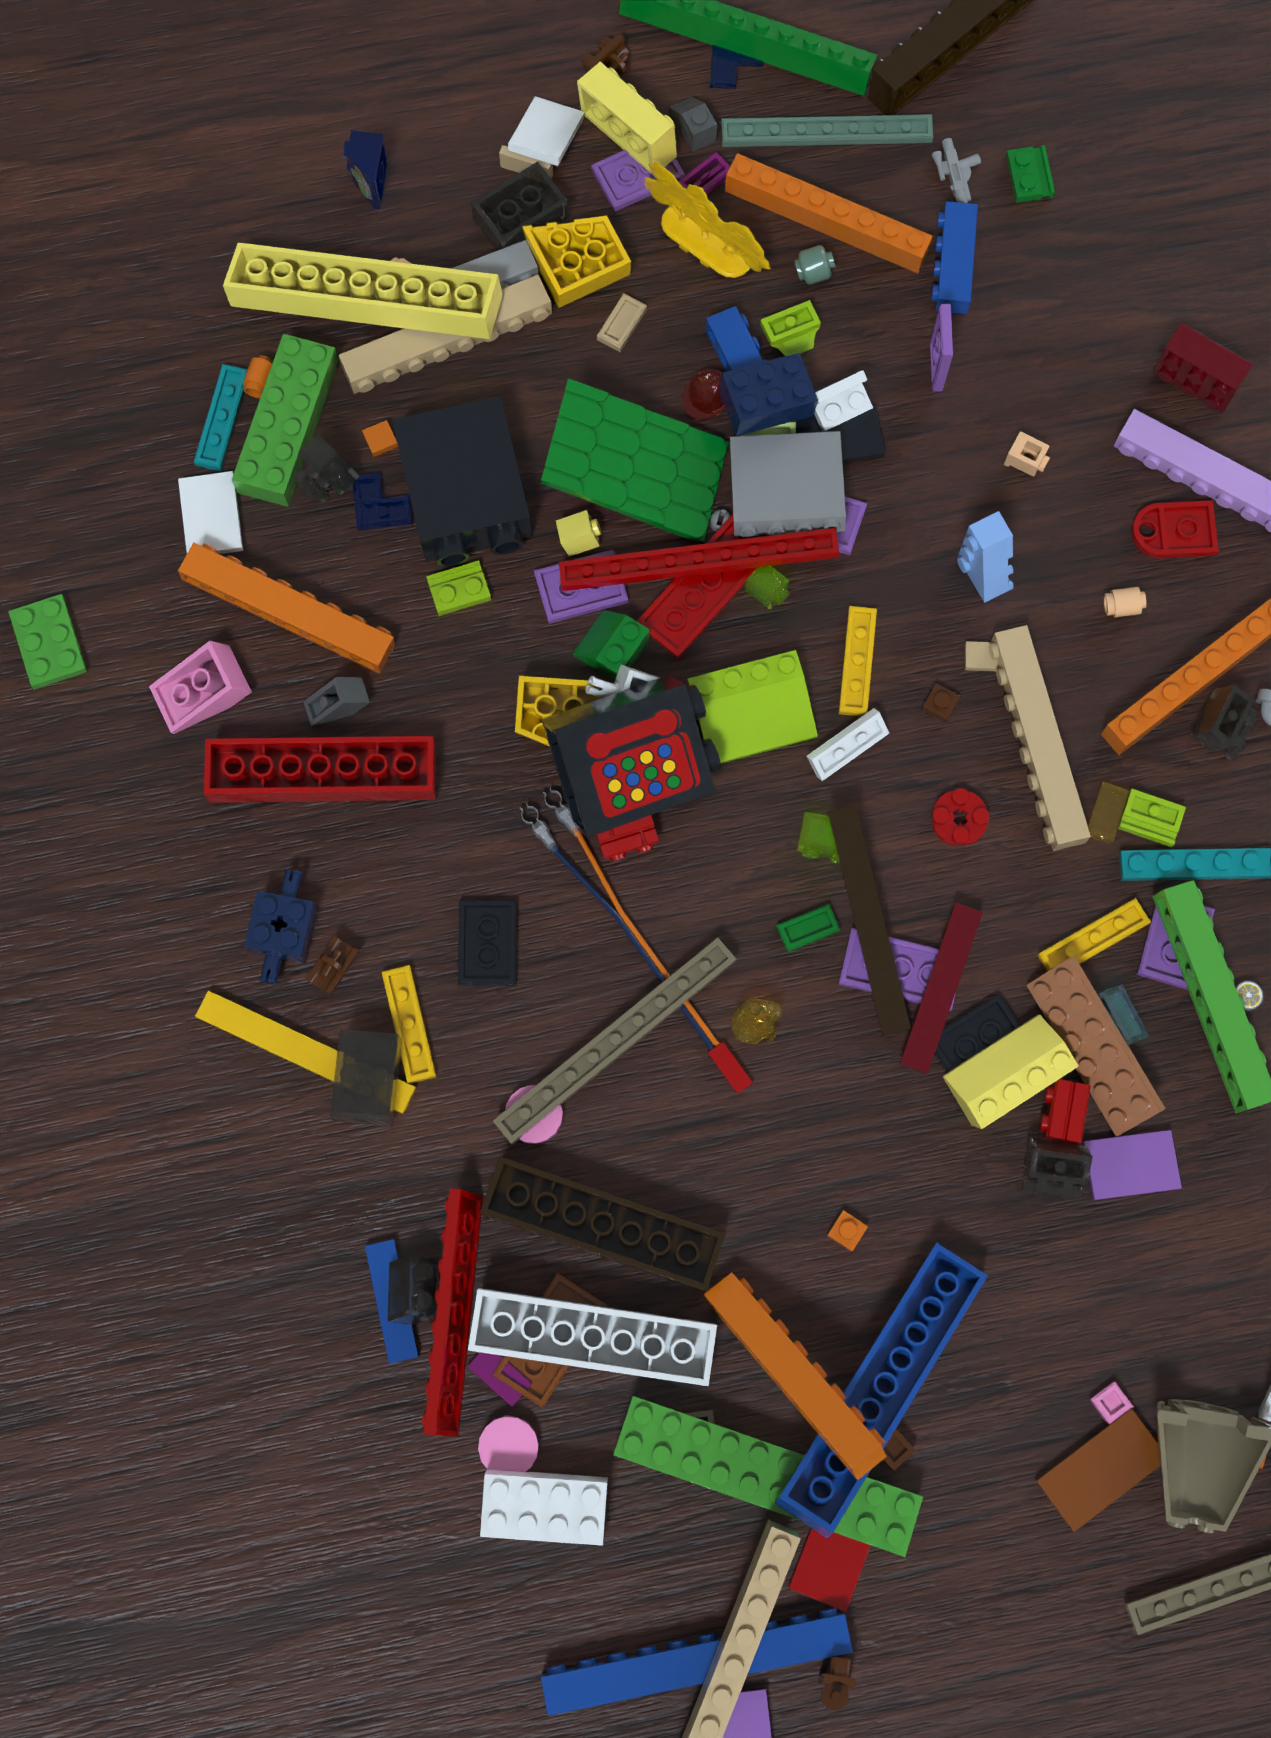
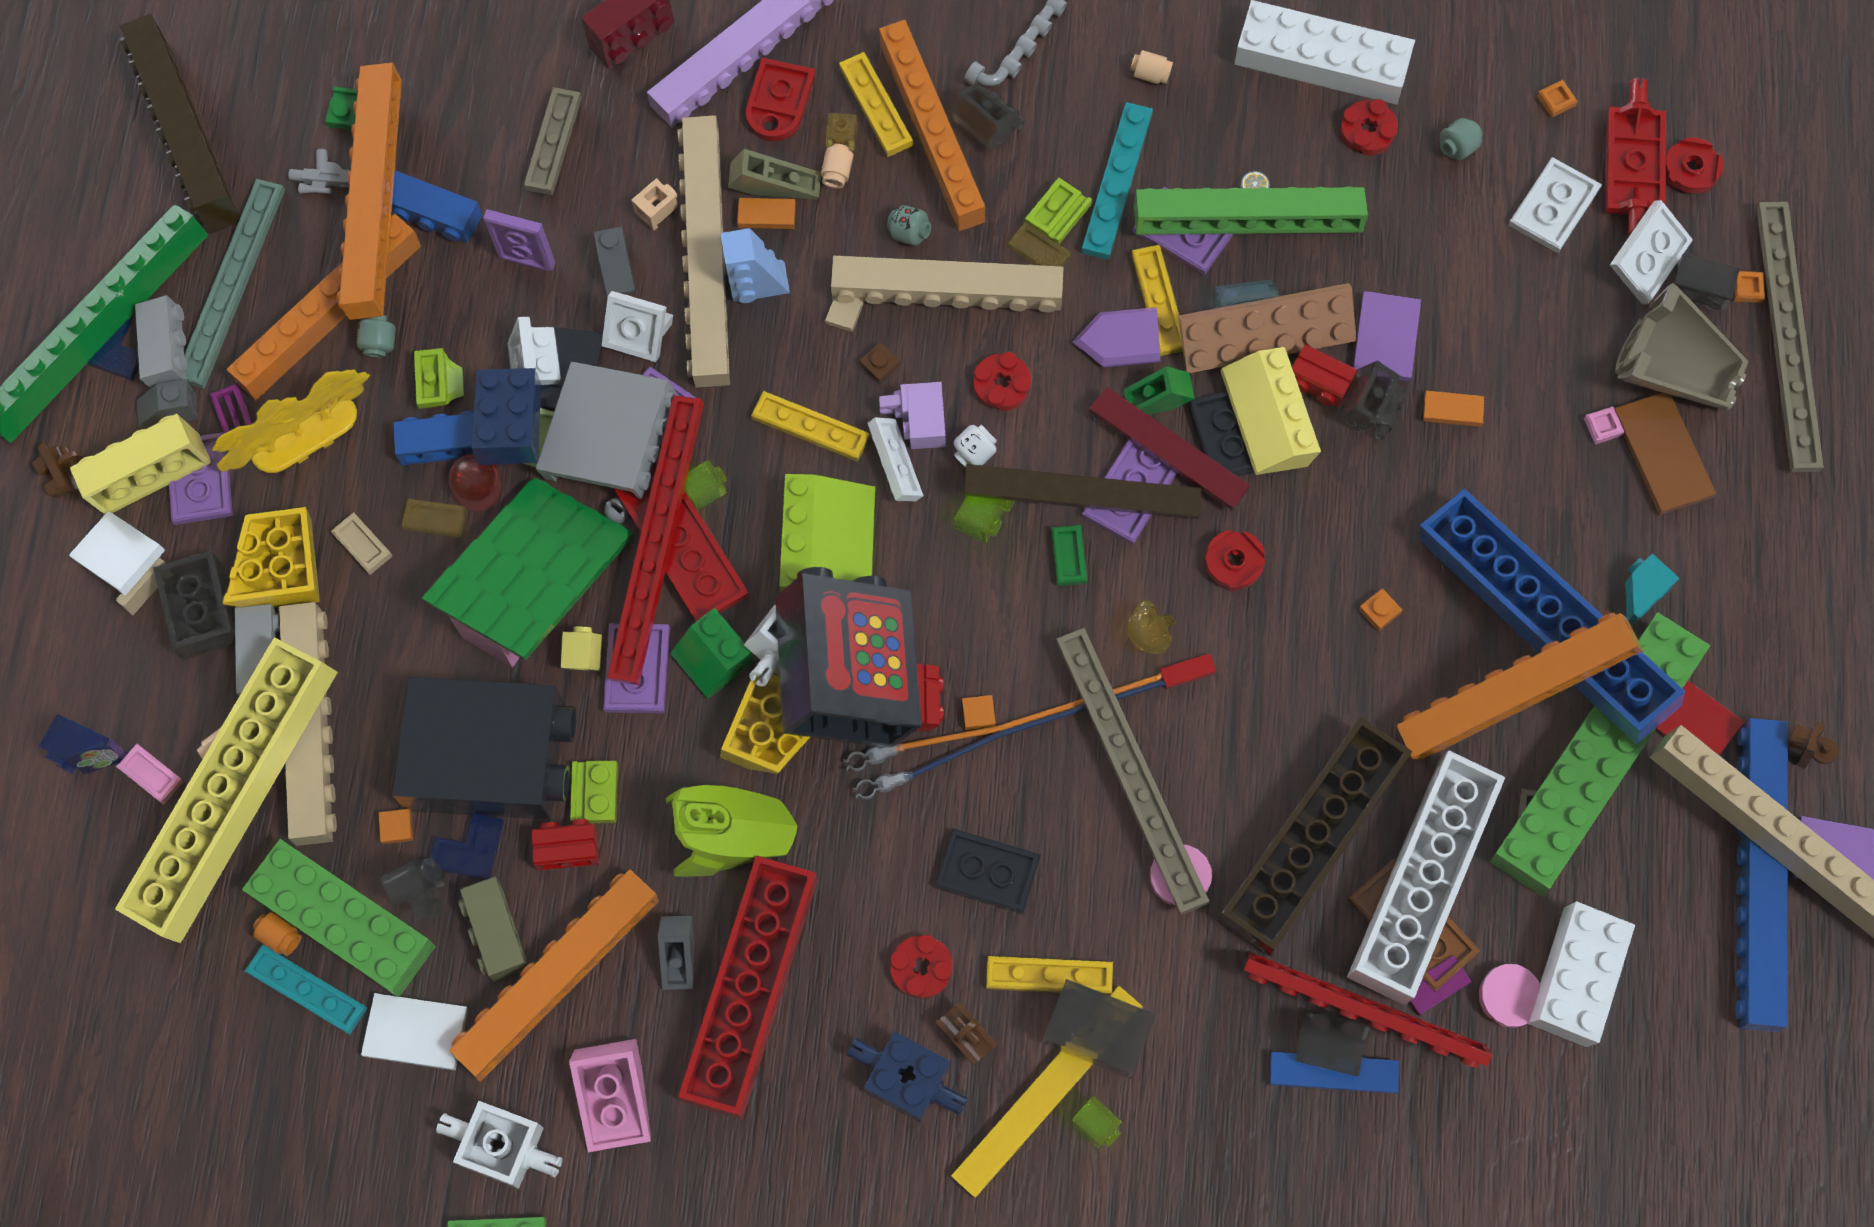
camera: 70 degrees left, 5 degrees down
(116, 615) = (492, 1125): none -> white brick
(286, 1102) = (1097, 1123): none -> clear neon green brick
(312, 546) = (492, 929): none -> olive brick
(367, 231) = (150, 774): none -> bright pink tile
(384, 894) = (905, 959): none -> red plate
(402, 580) = (565, 845): none -> red brick
(456, 716) = (739, 829): none -> lime piece
(631, 891) = (978, 712): none -> orange tile
(664, 373) = (434, 517): none -> clear yellow tile
(747, 93) = (160, 341): none -> light grey brick
(868, 1078) = (1234, 576): none -> red plate
(884, 811) = (974, 446): none -> white head
(899, 477) = (635, 326): none -> white bracket
(903, 755) = (921, 413): none -> lavender hinge
(944, 206) = (370, 192): none -> orange brick
(952, 1482) = (1646, 586): none -> teal slope
(957, 439) = (614, 261): none -> dark grey slope
(996, 964) = (1161, 391): none -> green slope
(1018, 506) = (705, 252): none -> tan brick
(1041, 914) = (1122, 337): none -> medium lavender tile
(1055, 556) = (766, 213): none -> orange tile
(1059, 347) = (552, 141): none -> dark tan plate
(1077, 1249) = (1453, 408): none -> orange tile
(1086, 685) = (909, 225): none -> sand green head
(1091, 550) = (772, 177): none -> olive slope
(1161, 603) = (841, 130): none -> clear yellow plate
(1202, 617) = (876, 104): none -> yellow plate

